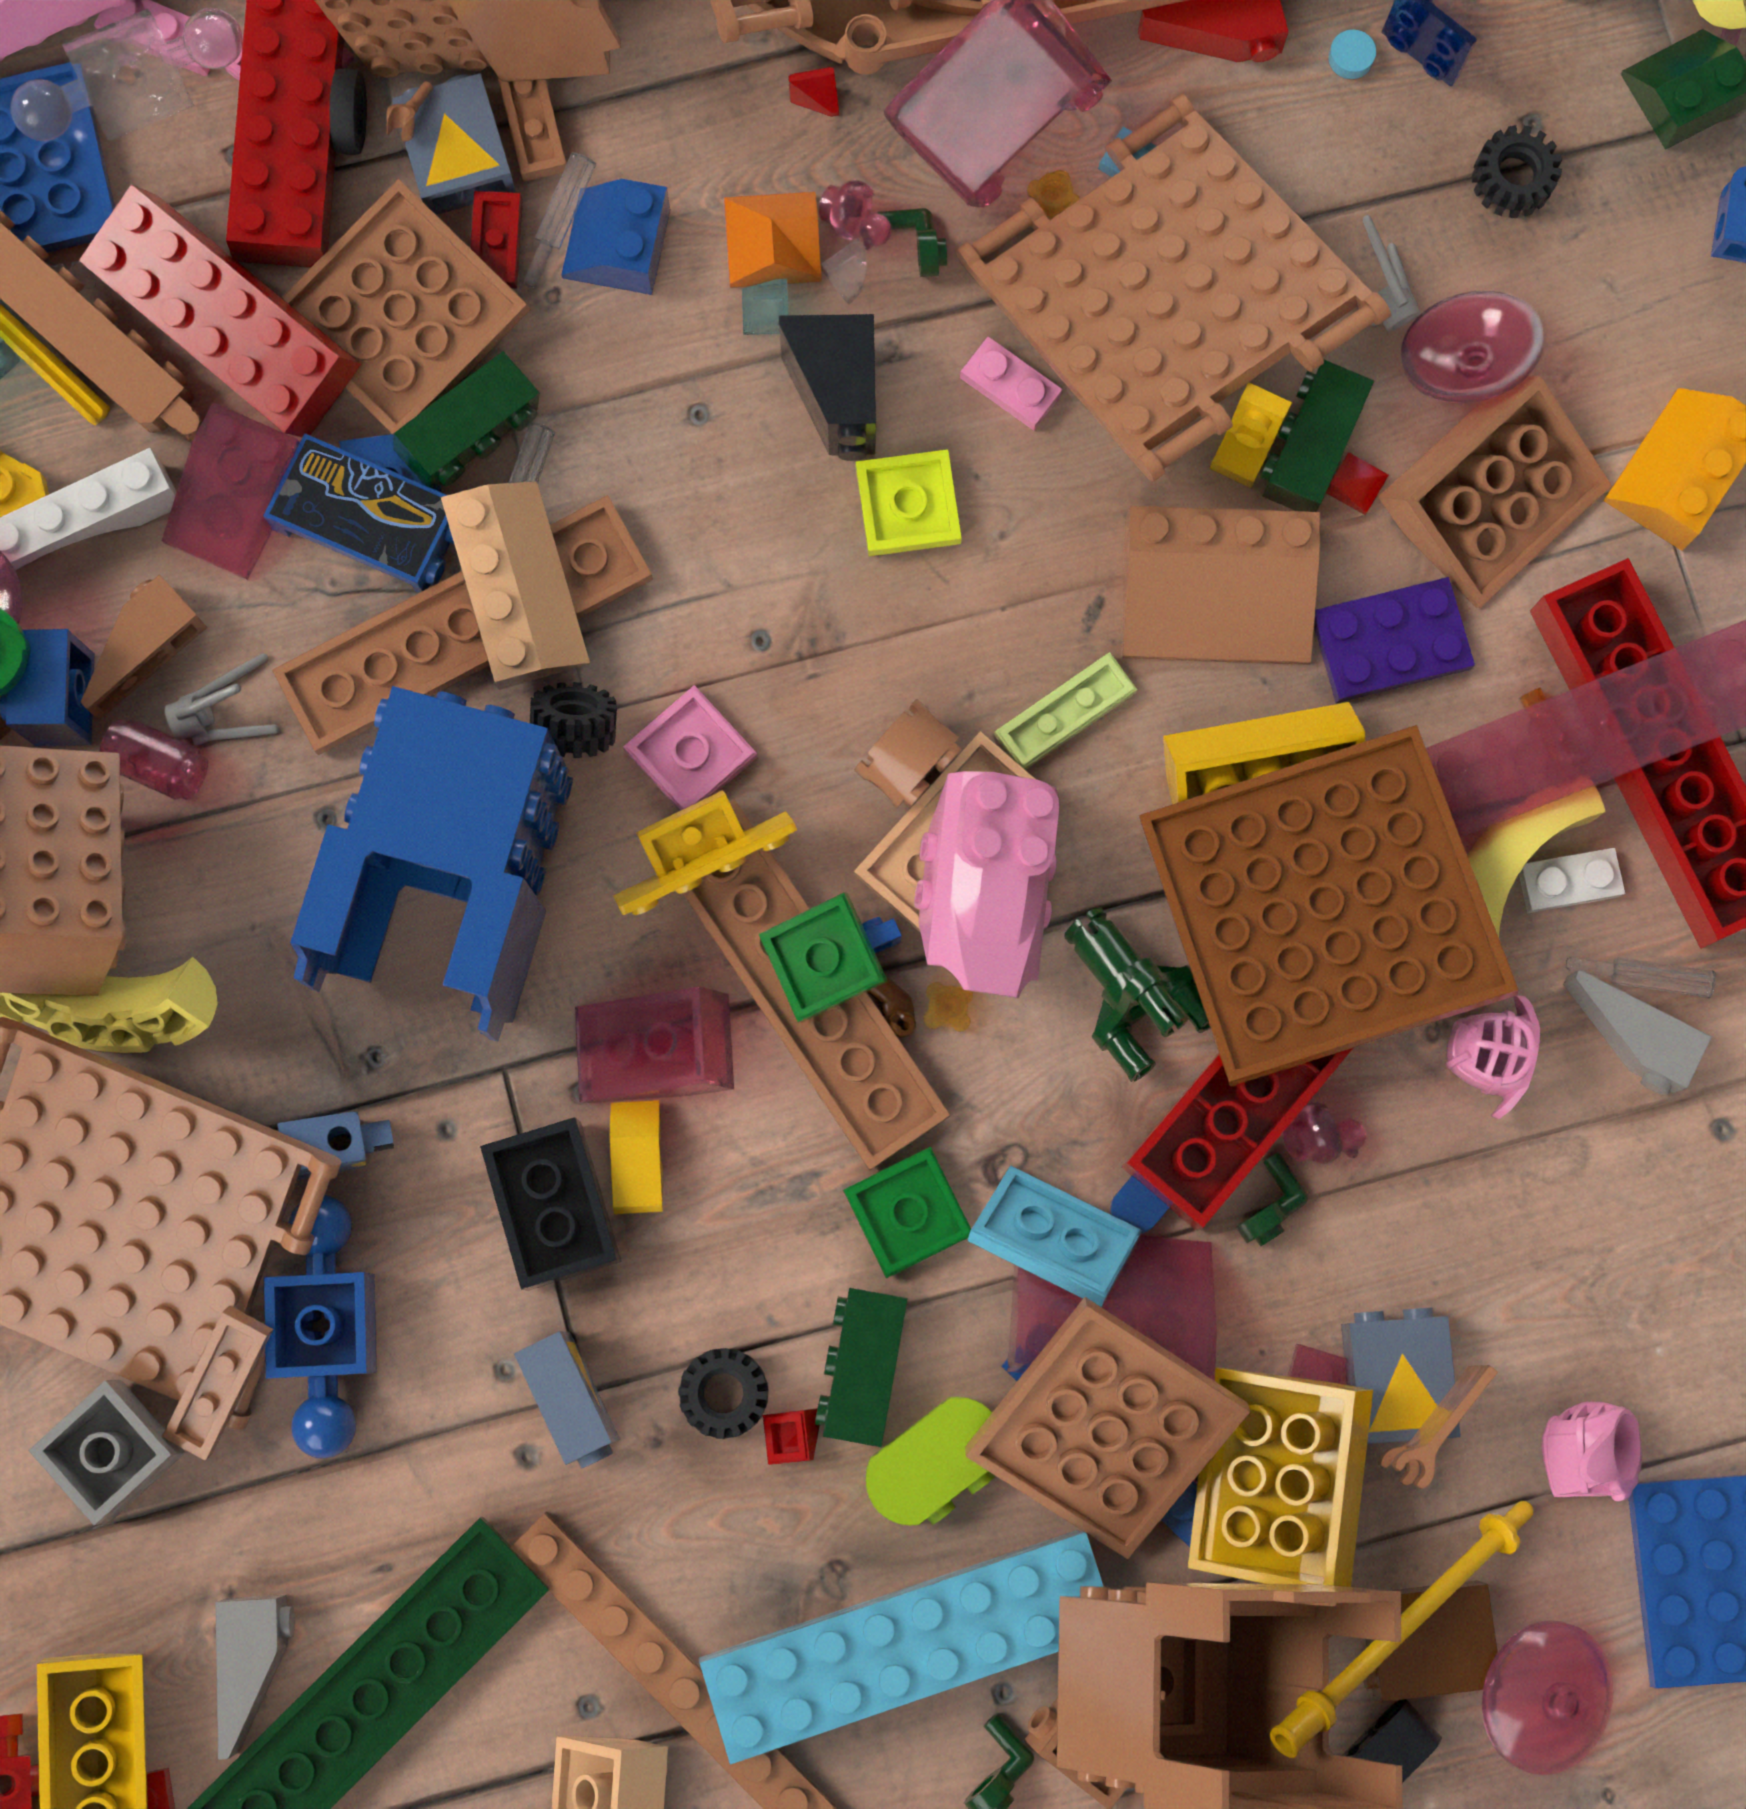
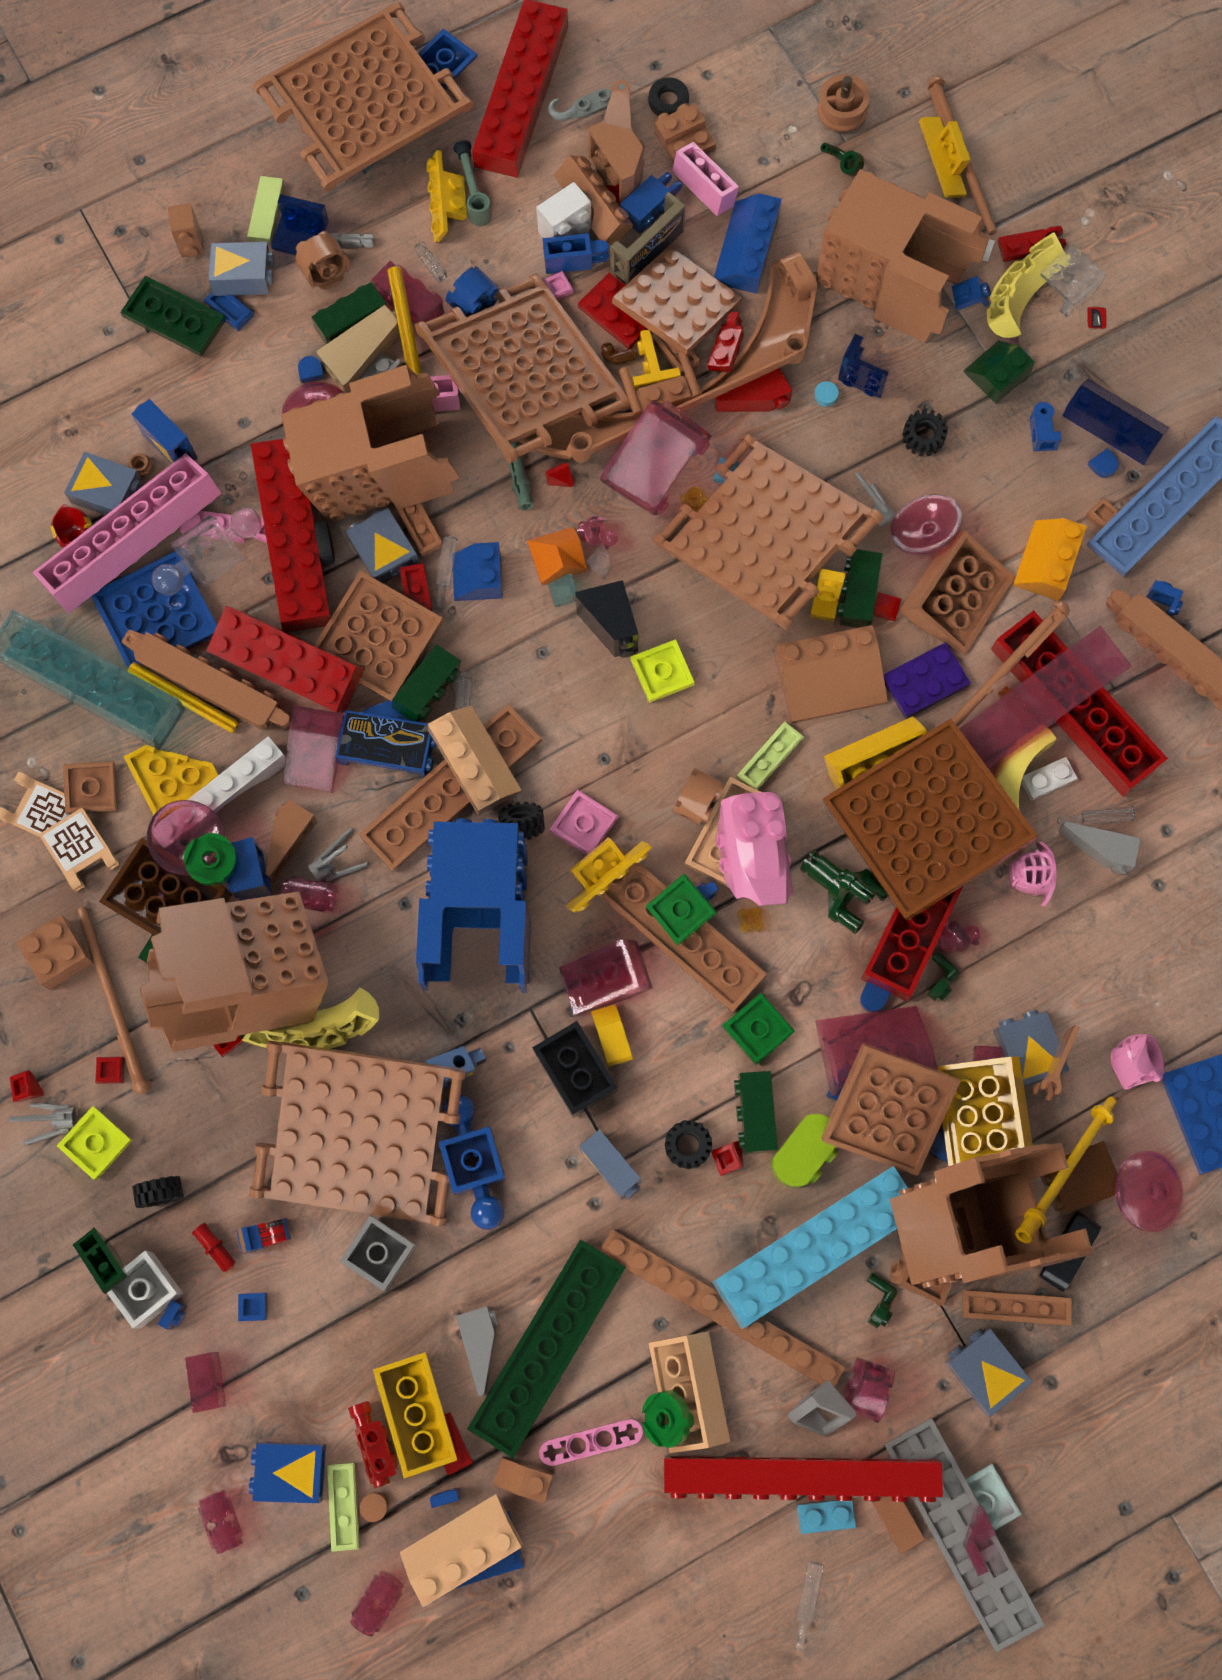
camera: 10 degrees left, 5 degrees down
(217, 1382) = (428, 1202): nougat plate -> none
(404, 114) = (355, 538): nougat hand -> none
(739, 88) = (520, 484): none -> sand green pin
(895, 1007) = (724, 926): reddish brown arm -> none
(930, 249) = (639, 541): dark green plate -> none
(1011, 383) = (698, 598): bright pink plate -> none
(1054, 1236) = (836, 1020): medium azure tile -> none
(1595, 627) = (1026, 648): none -> nougat bar

